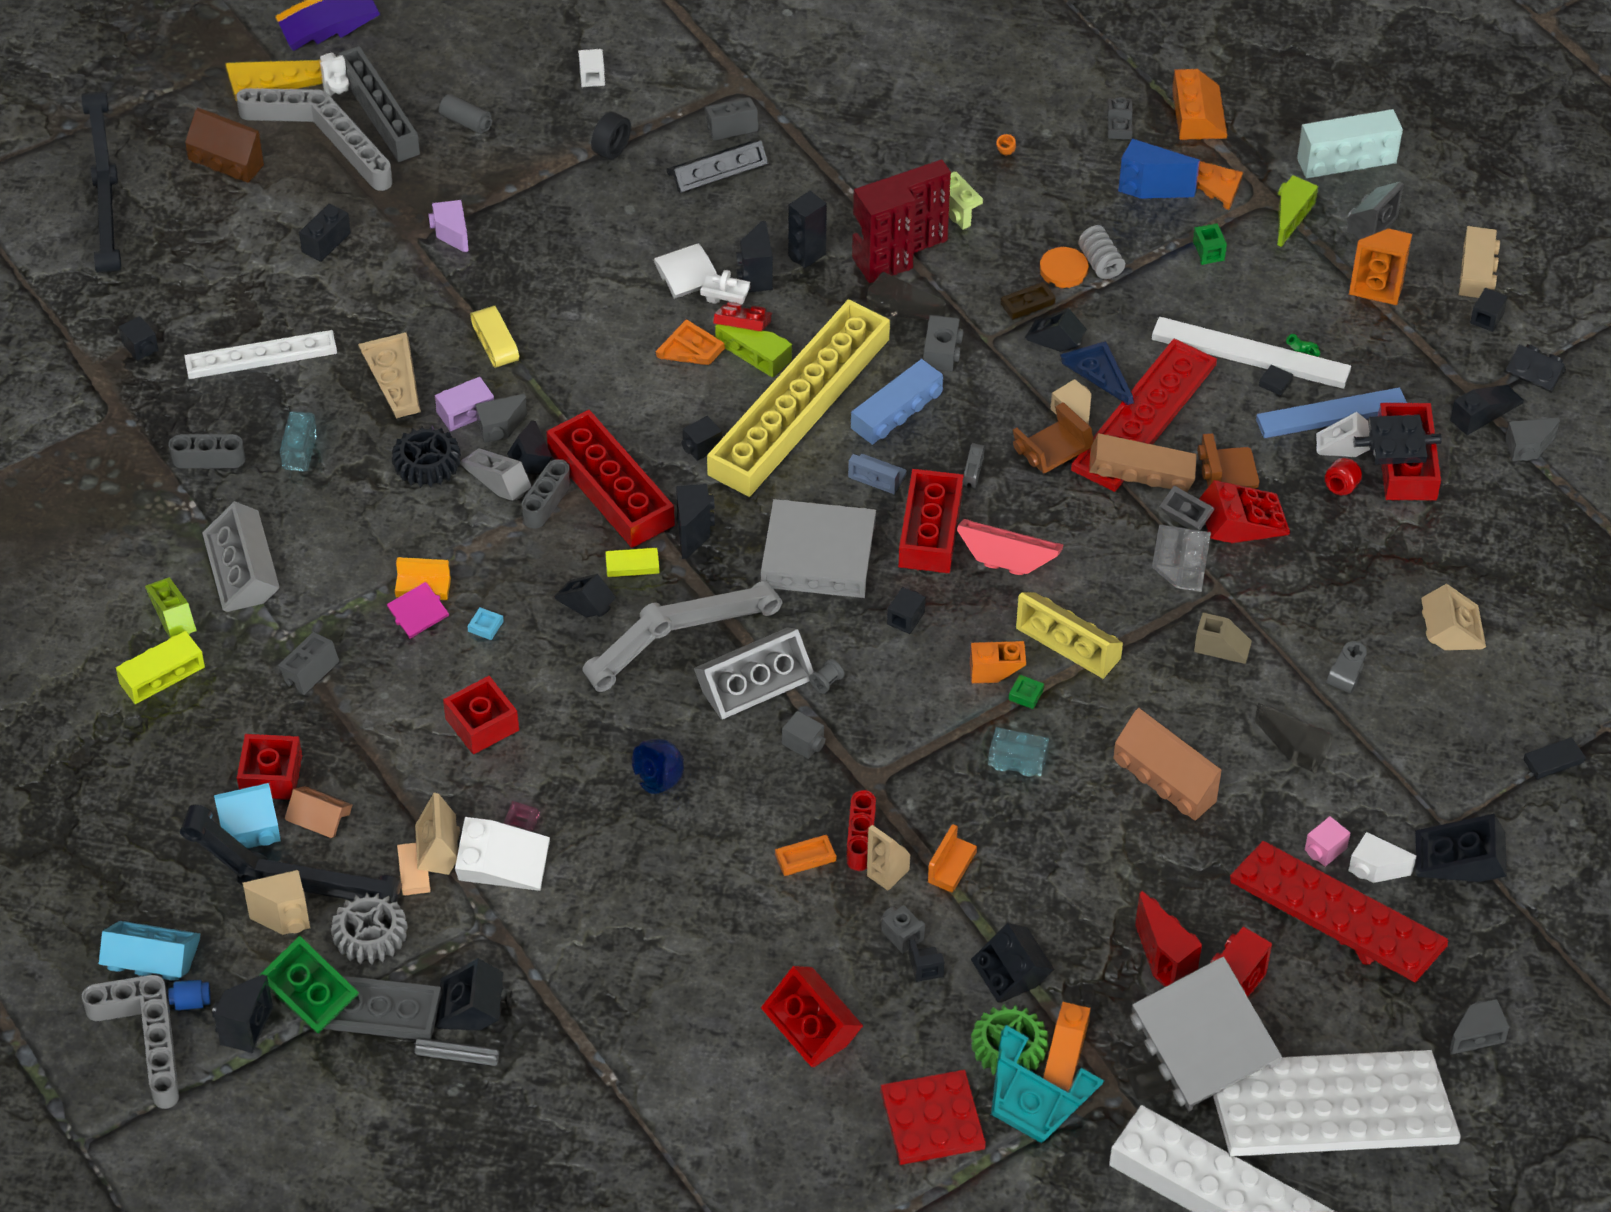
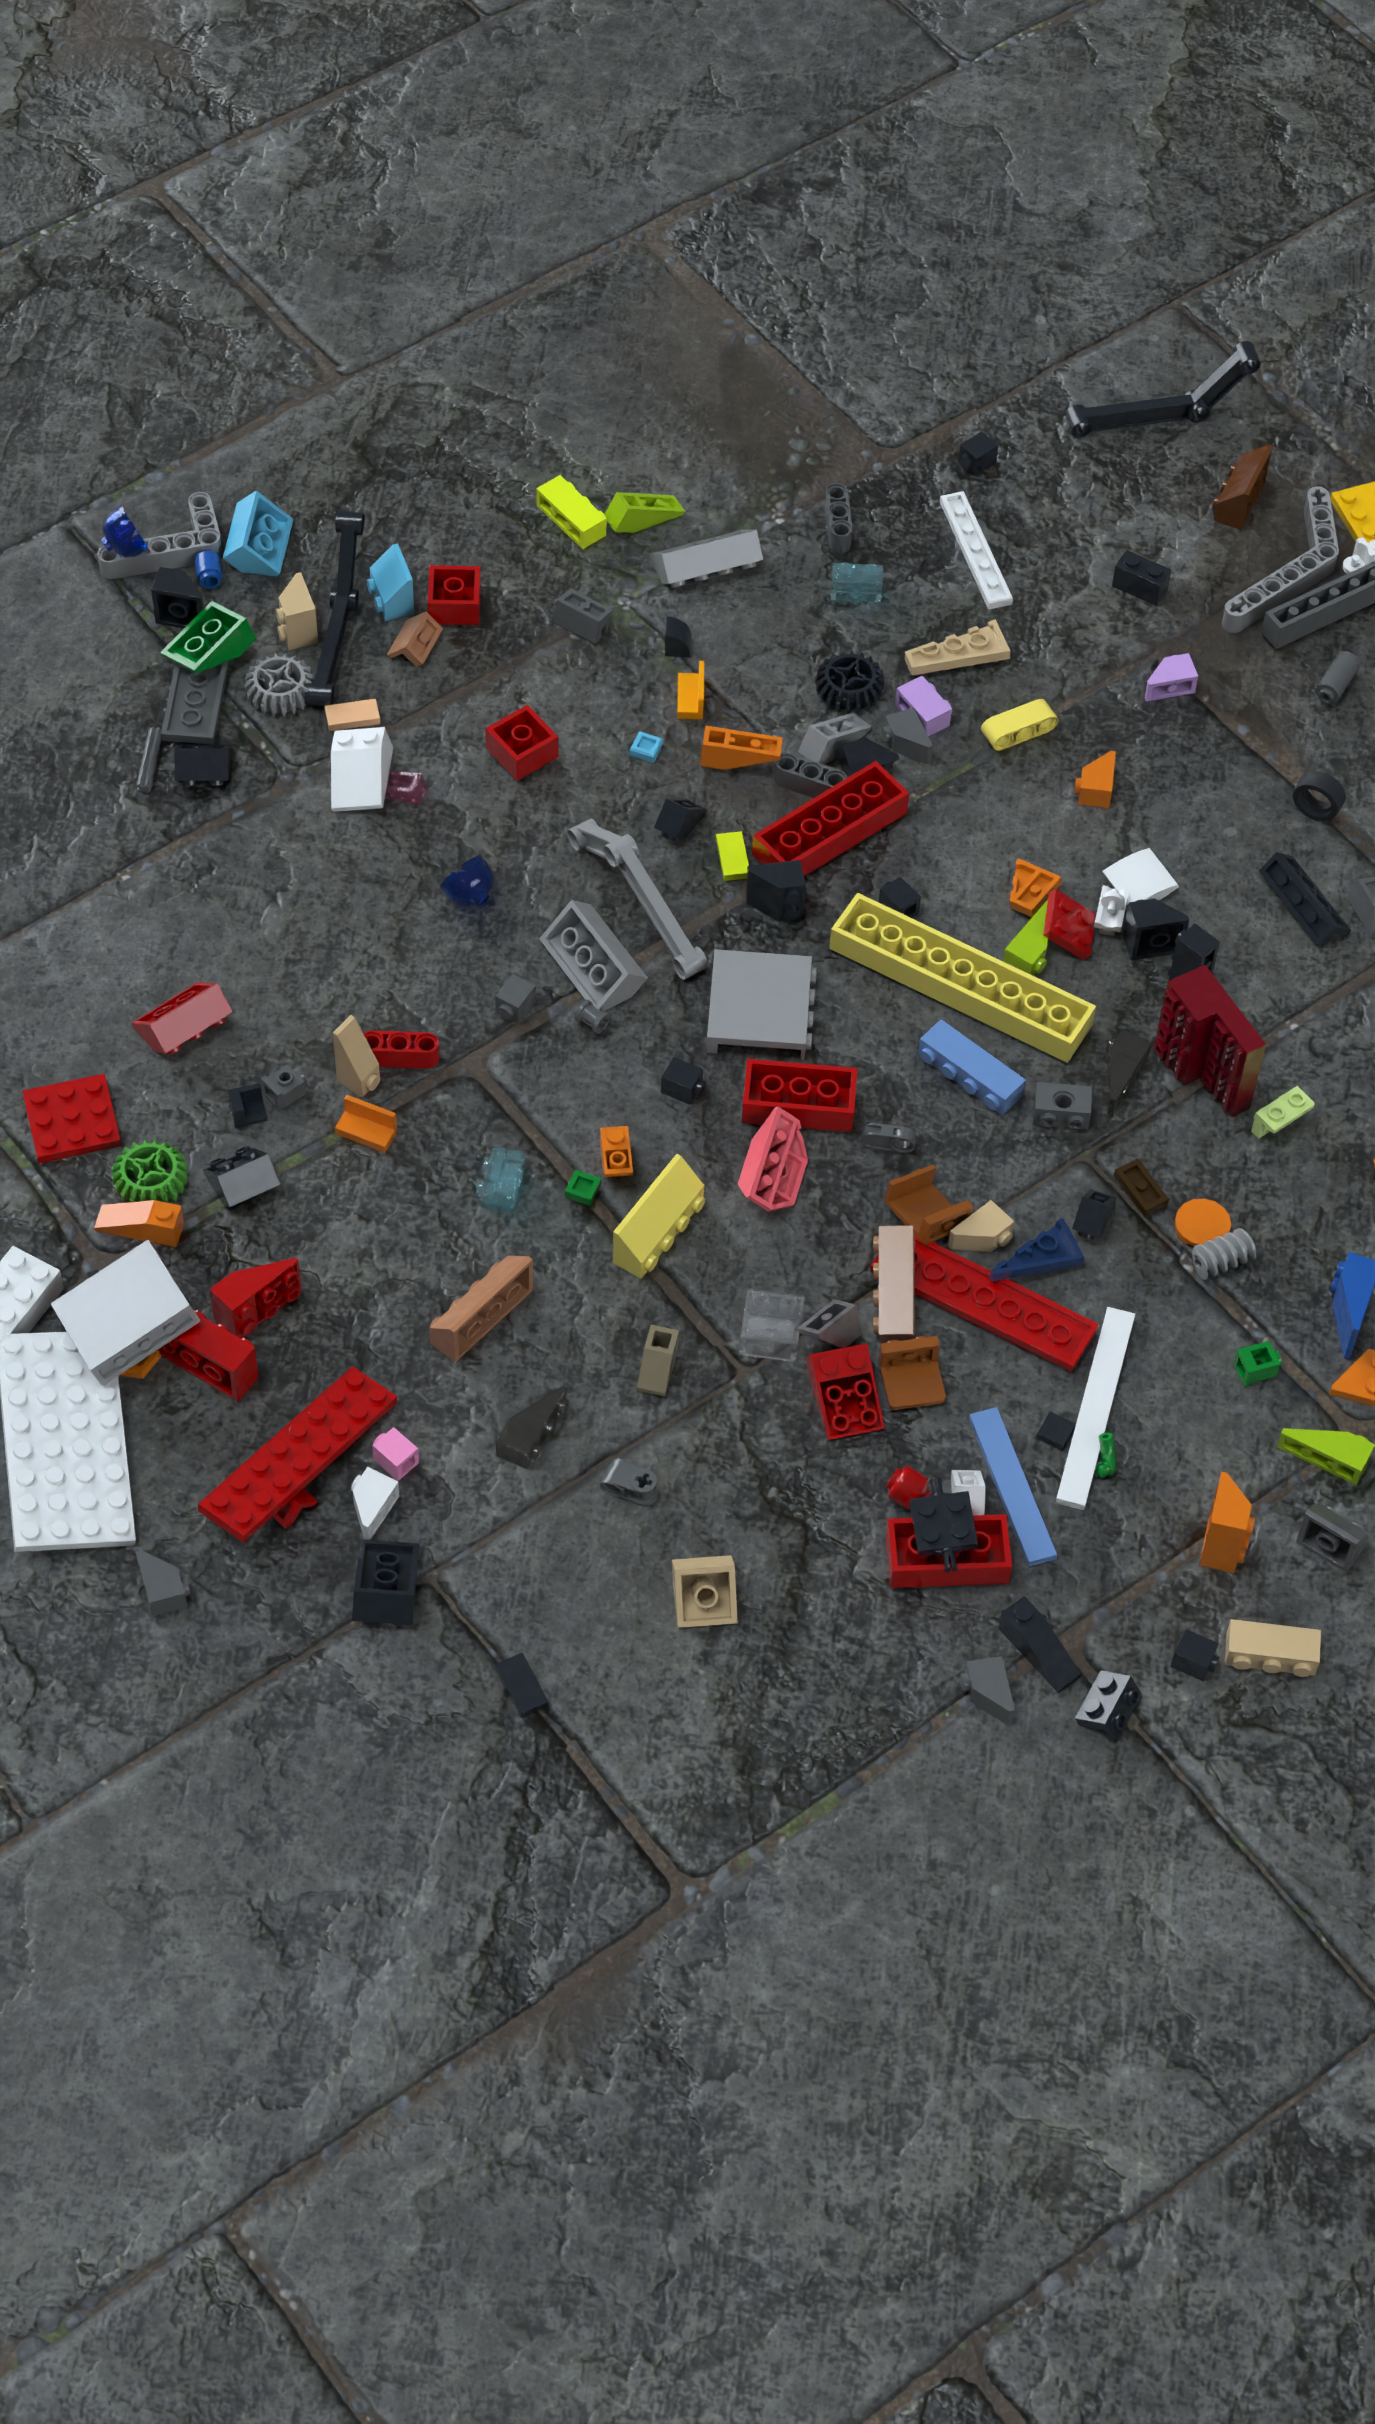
camera: 85 degrees right, 5 degrees up
(155, 1053) = (122, 534): none -> clear blue cylinder
(350, 590) = (677, 638): none -> black brick
(417, 610) = (656, 692): dark pink piece -> none
(437, 837) = (375, 712): tan slope -> none
(510, 541) = (735, 748): none -> orange slope
(570, 286) = (1096, 782): none -> orange slope
(805, 855) = (374, 1009): orange tile -> none
(876, 473) = (874, 1054): sand blue panel -> none
(1029, 1100) = (78, 1185): teal wing -> none

